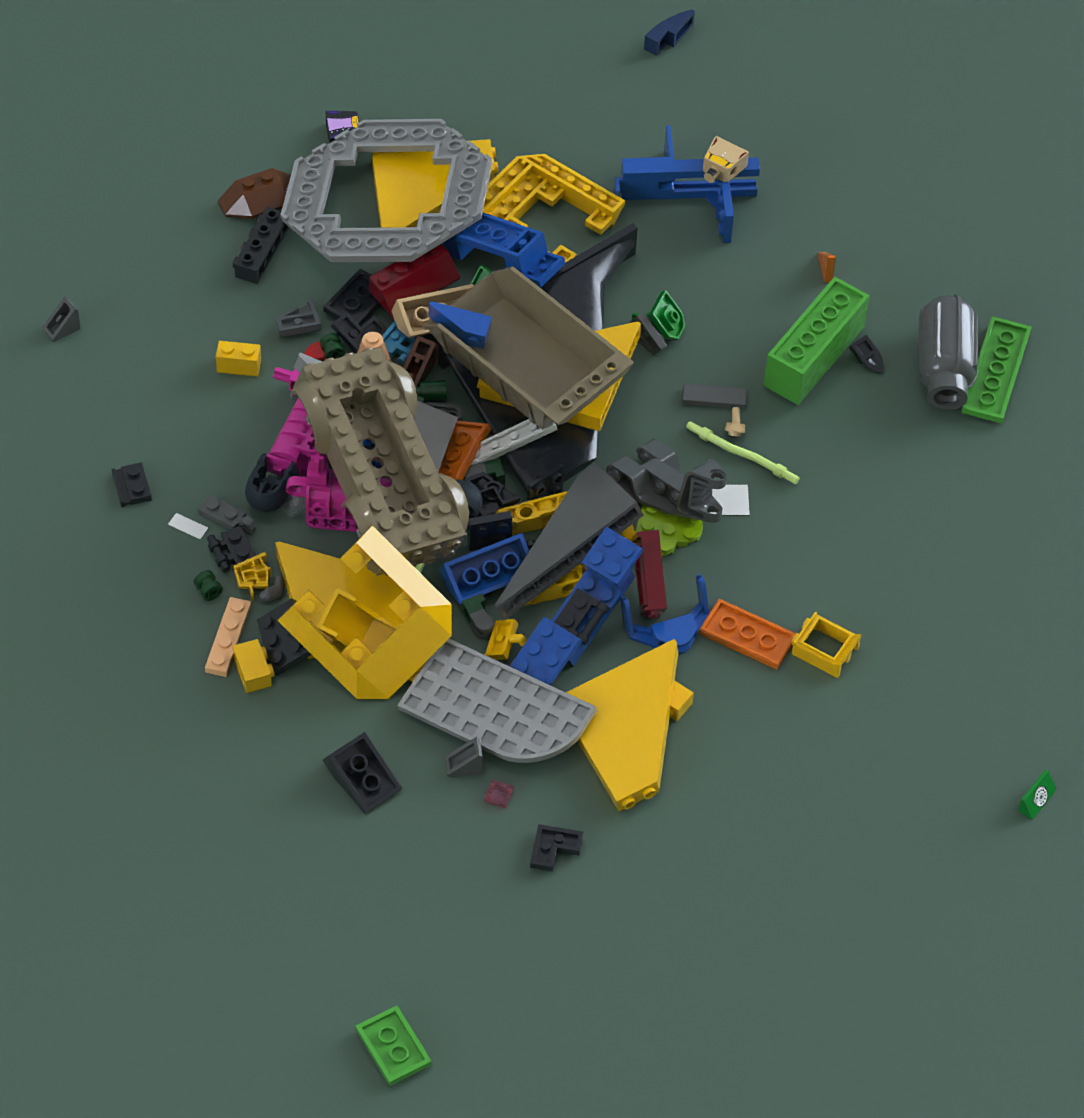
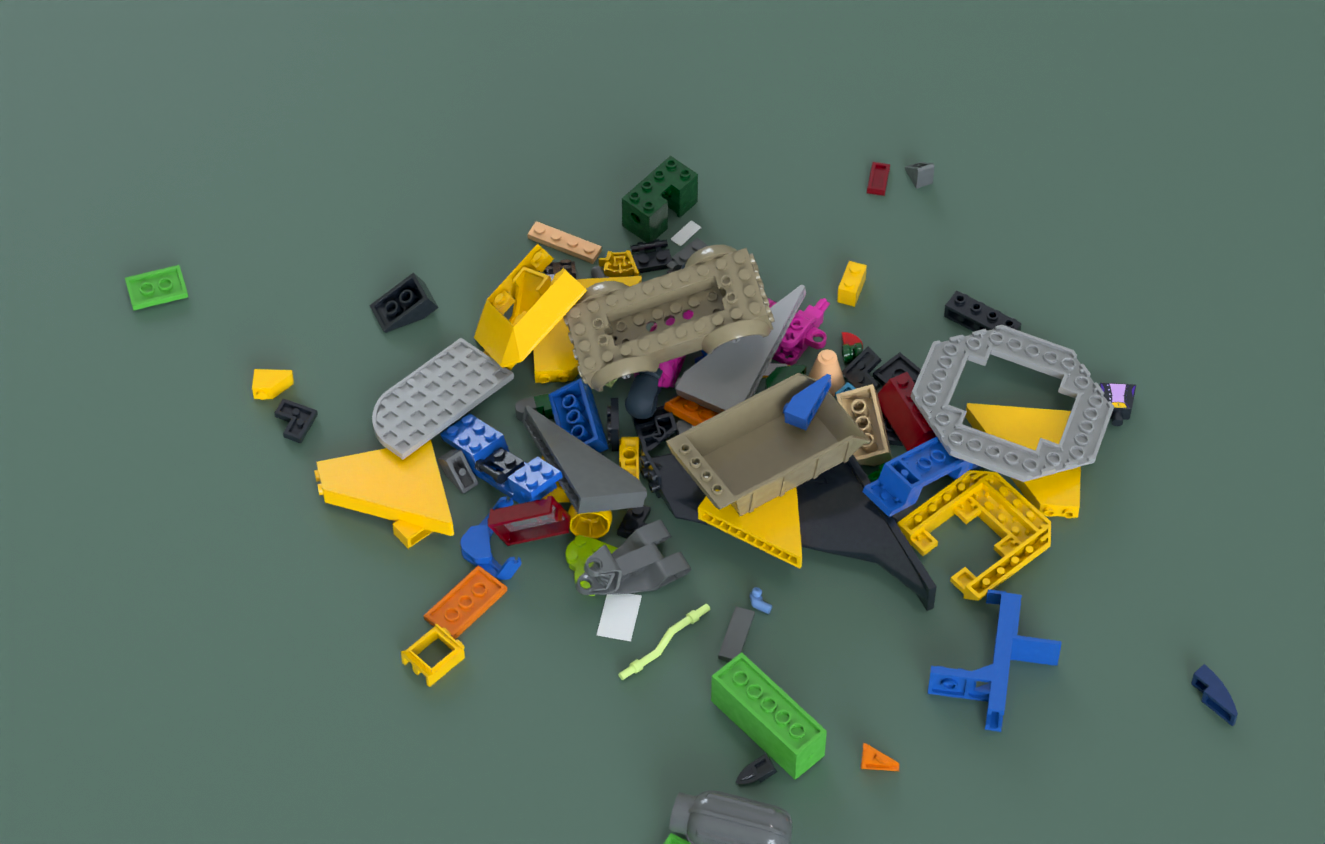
camera: 105 degrees right, 0 degrees up
(74, 361) = (878, 178): none -> dark red tile
(131, 484) = (736, 200): black plate -> none
(179, 546) = (648, 202): none -> dark green piece
(209, 587) = (615, 232): dark green wheel -> none
(252, 665) = (521, 245): yellow brick -> none
(254, 193) = (1043, 321): reddish brown wedge -> none
(299, 320) = (890, 335): dark grey wing -> none
(465, 759) = (391, 373): dark grey slope -> none
(498, 793) = (359, 395): clear pink tile -> none
(502, 639) = (502, 418): yellow plate -> none
(511, 883) = (271, 383): none -> yellow slope
(581, 670) = (458, 470): none -> dark grey slope
(649, 337) = (816, 588): dark grey wing -> none
(666, 317) = (829, 605): green piece -> none
(666, 386) = (757, 601): none -> medium blue arm
(724, 160) = (996, 671): tan torso -> none
(735, 428) = (692, 639): tan plate -> none
(1037, 795) = (230, 780): green slope -> none

